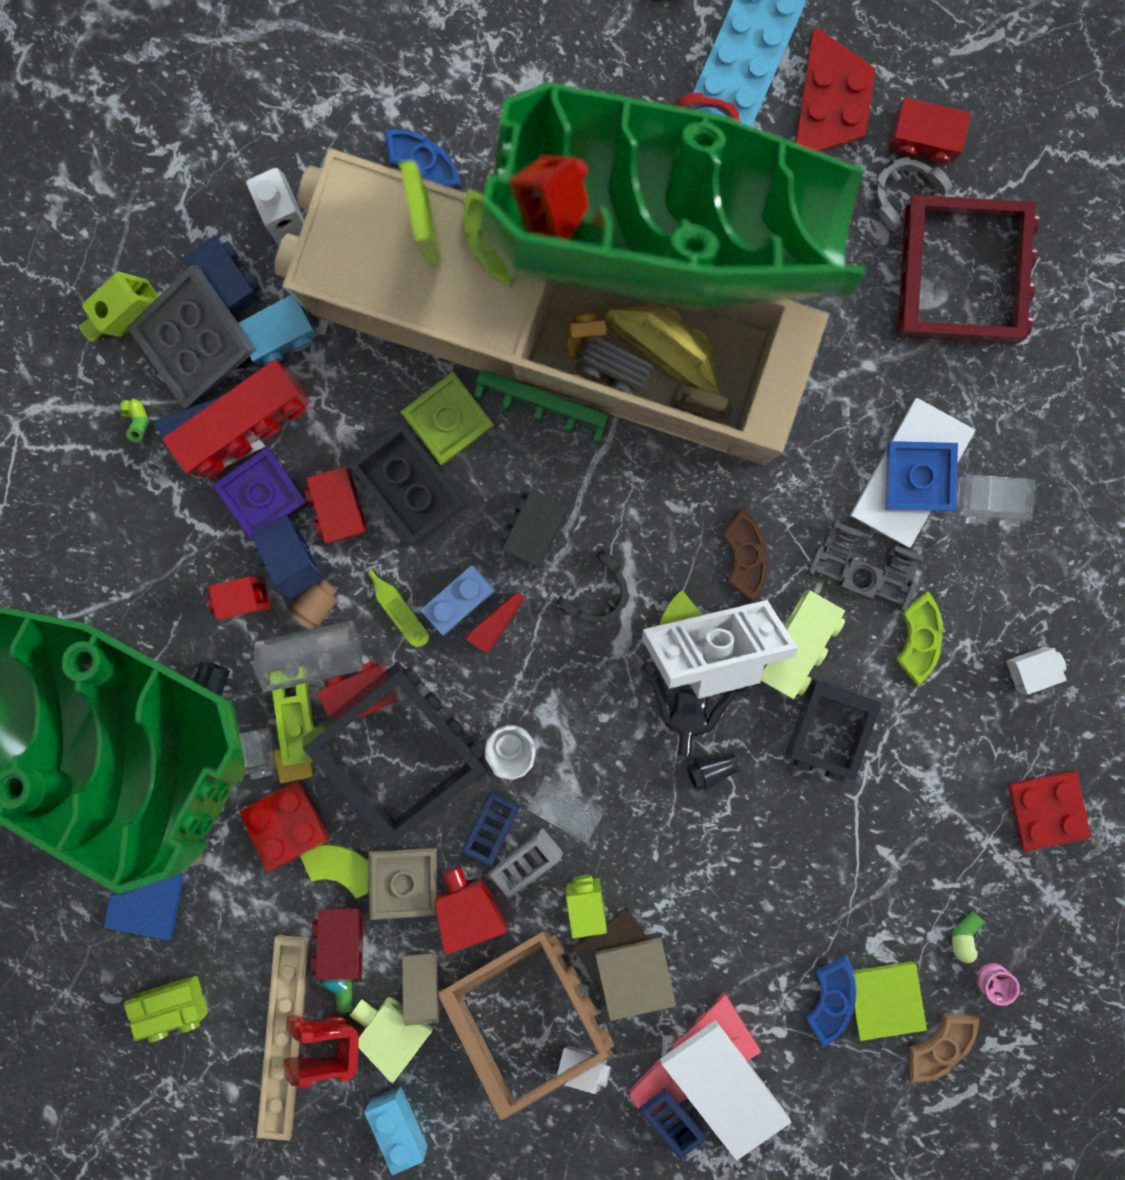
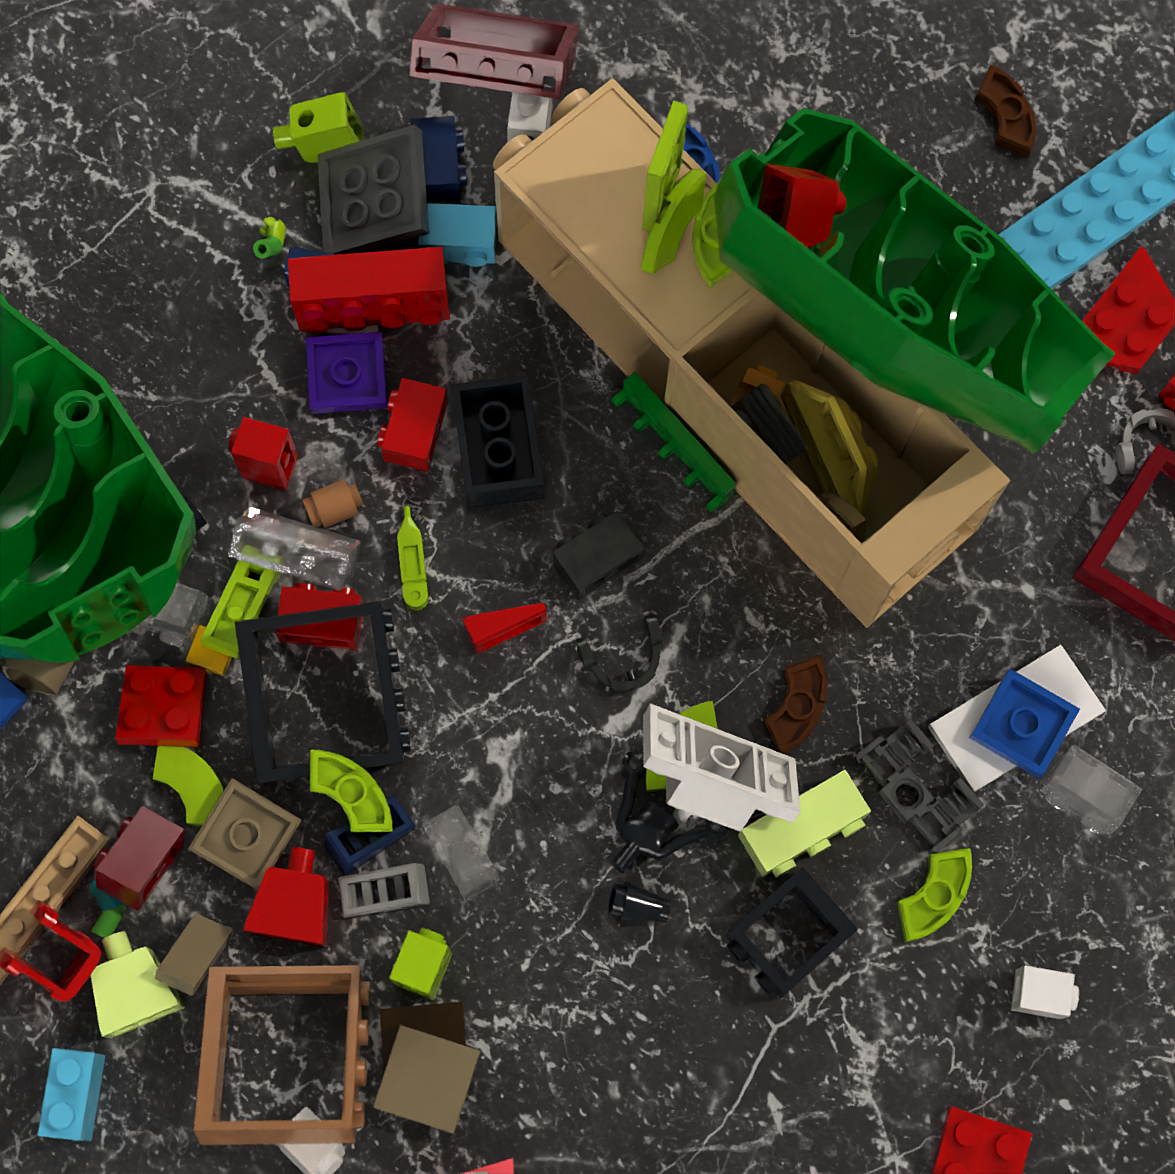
camera: 25 degrees right, 15 degrees down
(221, 185) = (494, 50): none -> window
(286, 557) = (334, 442): dark blue brick -> none
(447, 418) = (573, 406): lime tile -> none
(451, 236) = (664, 237): none -> lime tile
(458, 600) = (479, 580): medium blue brick -> none
(460, 811) = (352, 788): none -> lime tile
(510, 752) = (439, 760): white hair -> none

